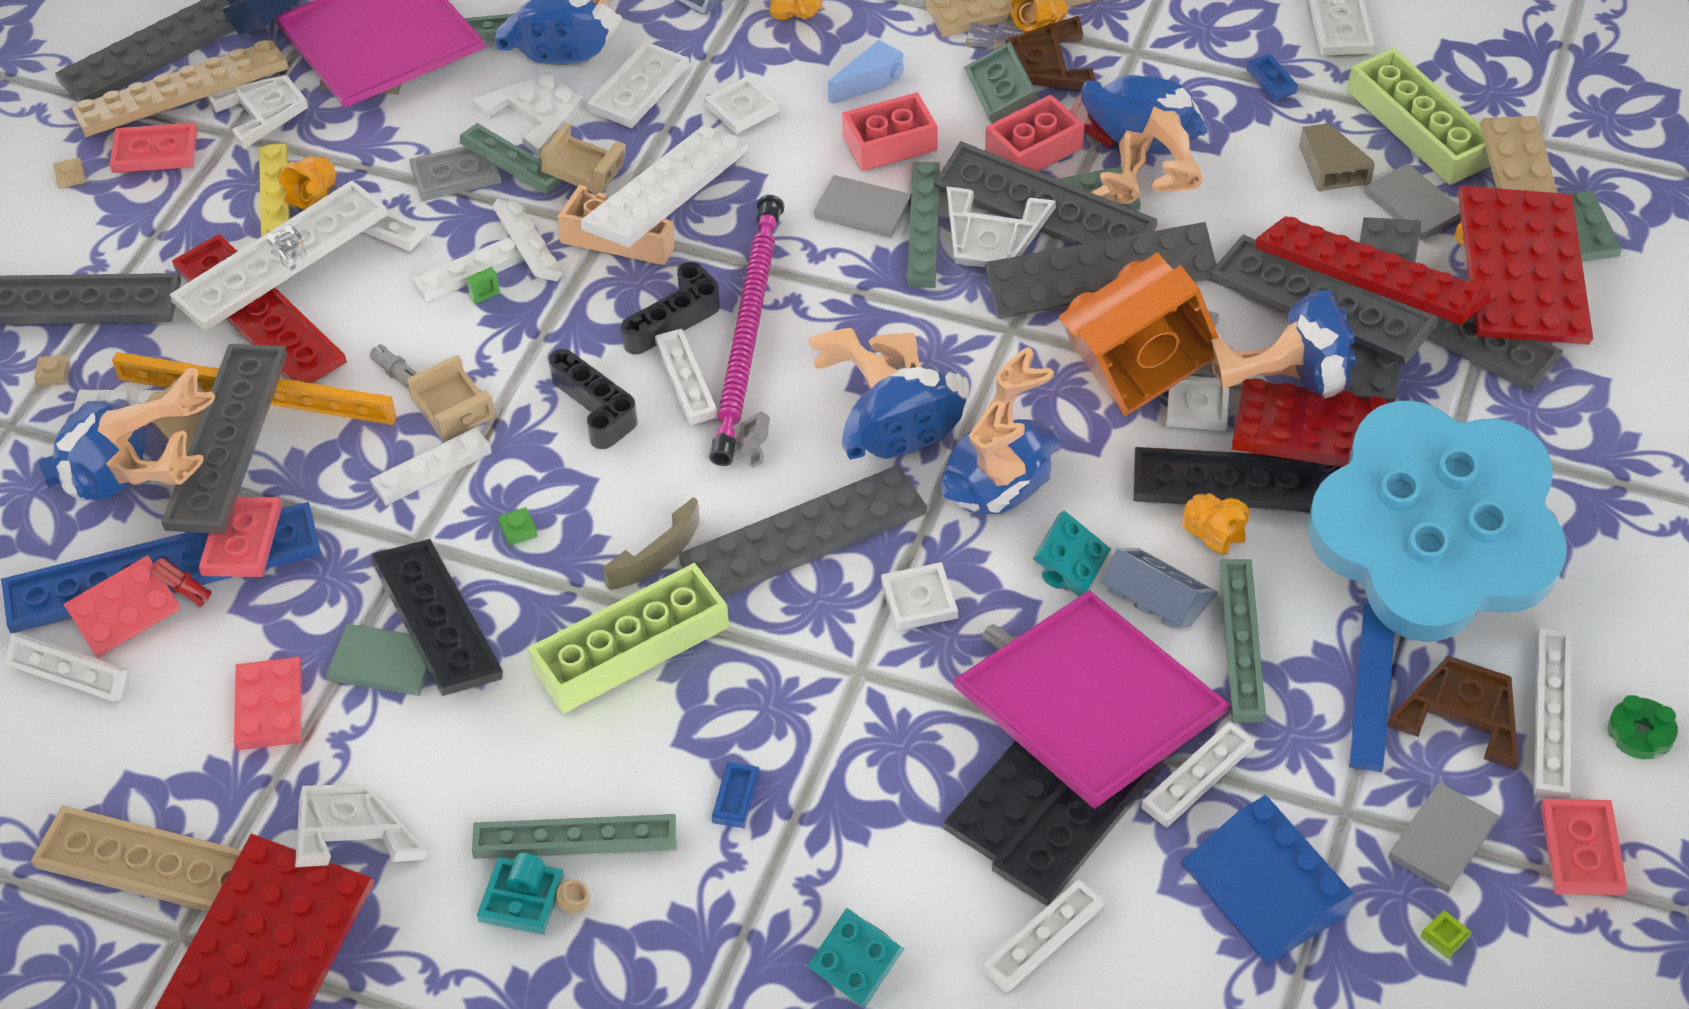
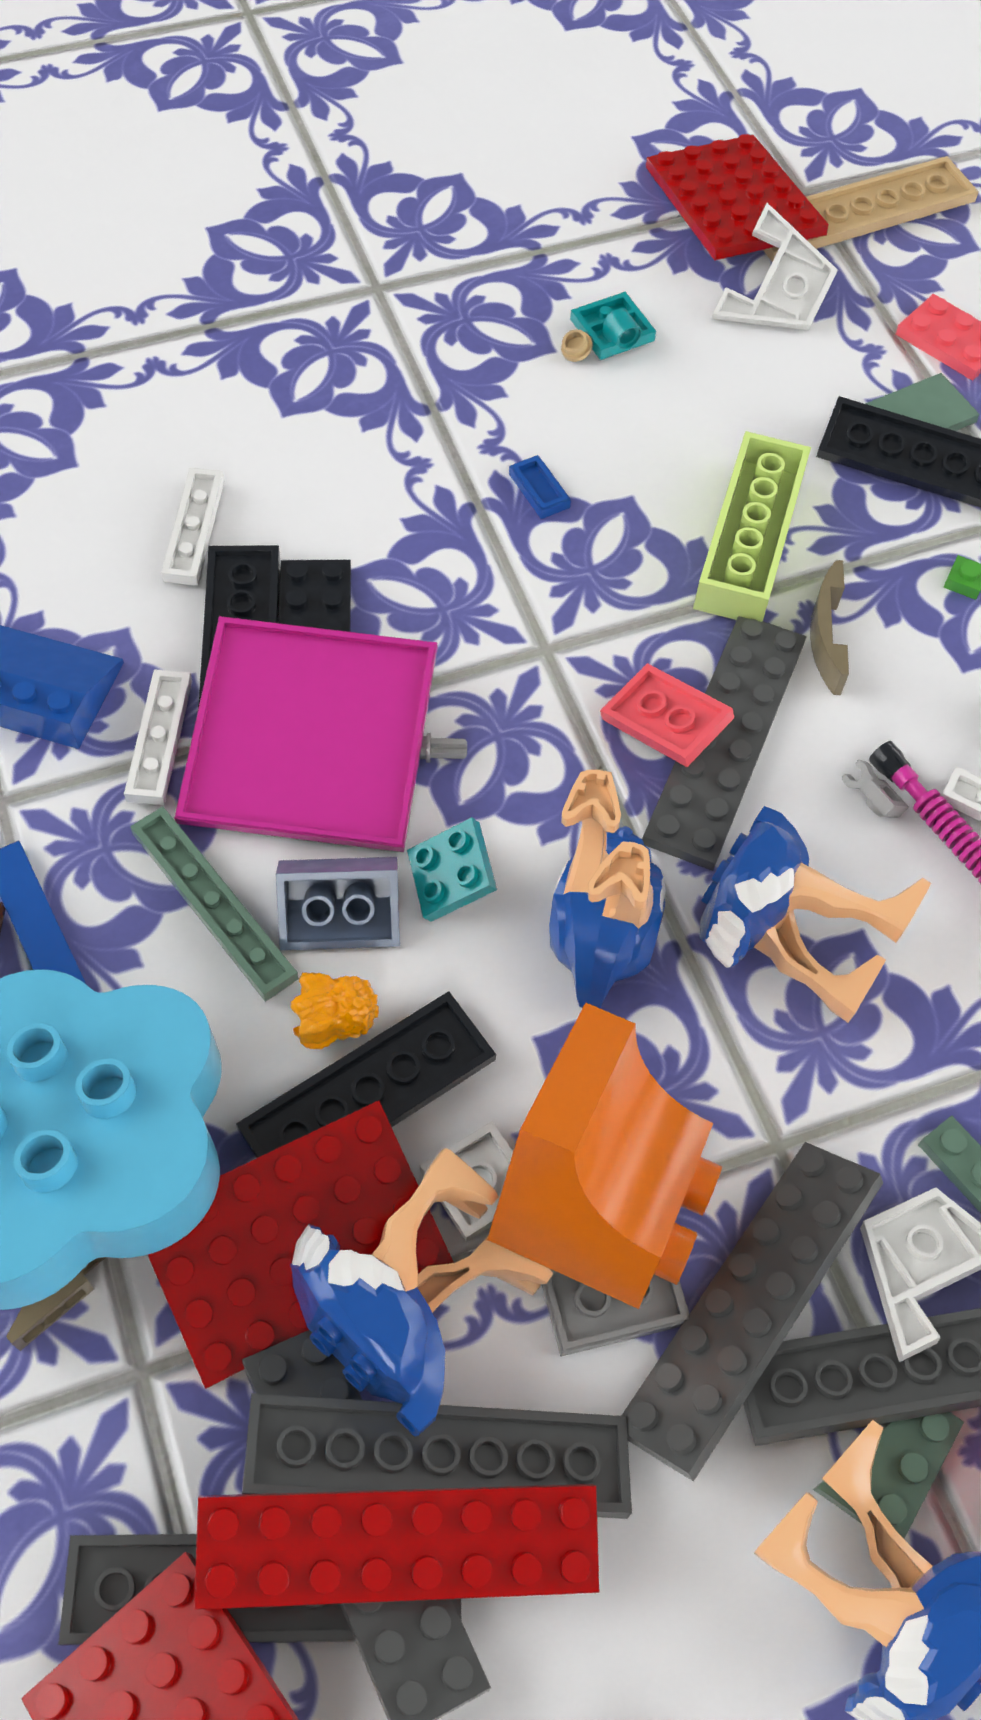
camera: 135 degrees right, 10 degrees up
(574, 836) = (620, 382): sand green plate -> none
(837, 555) = (667, 714): none -> coral plate
(855, 957) = (338, 417): teal plate -> none
(919, 596) = (558, 738): white plate -> none

